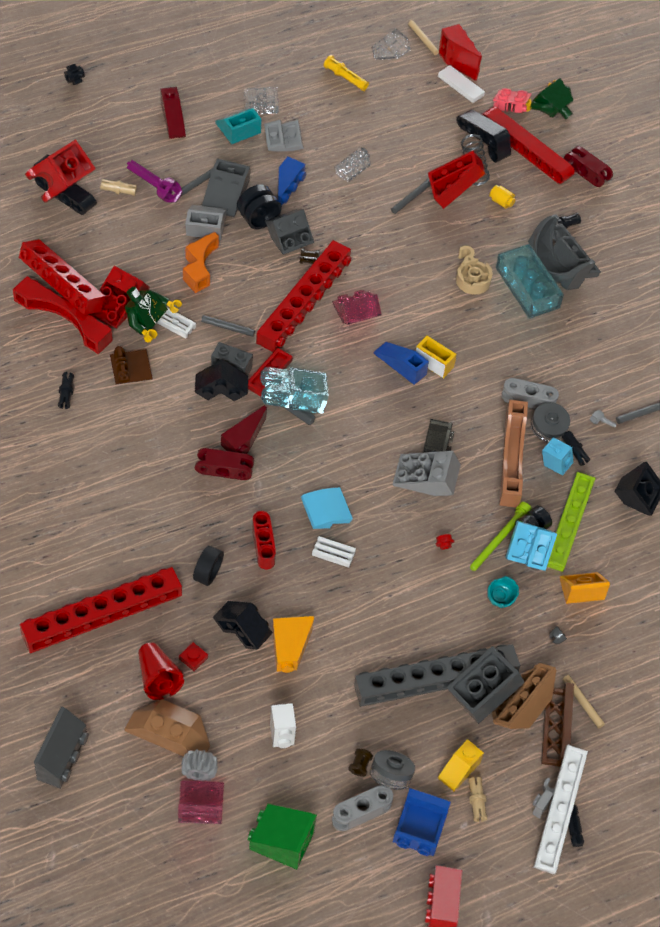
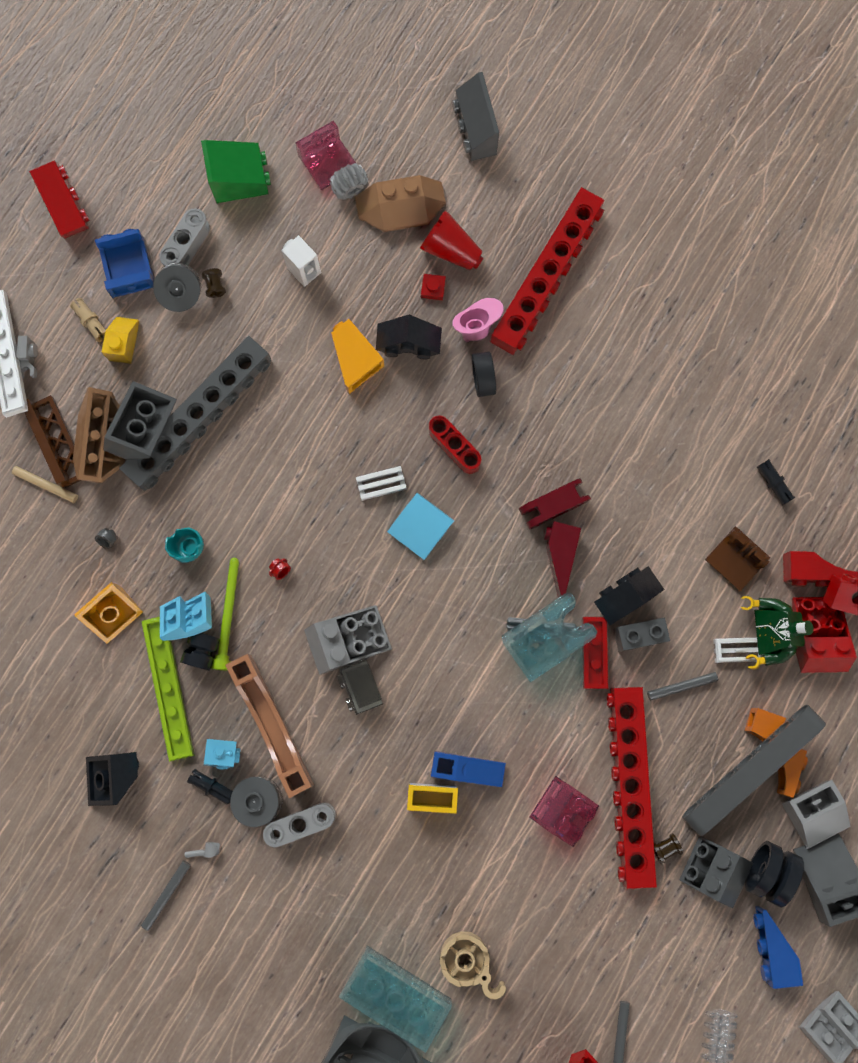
camera: 150 degrees right, 25 degrees up
(180, 605) = (477, 319): none -> bright pink piece
(226, 254) = (754, 770): none -> dark grey beam

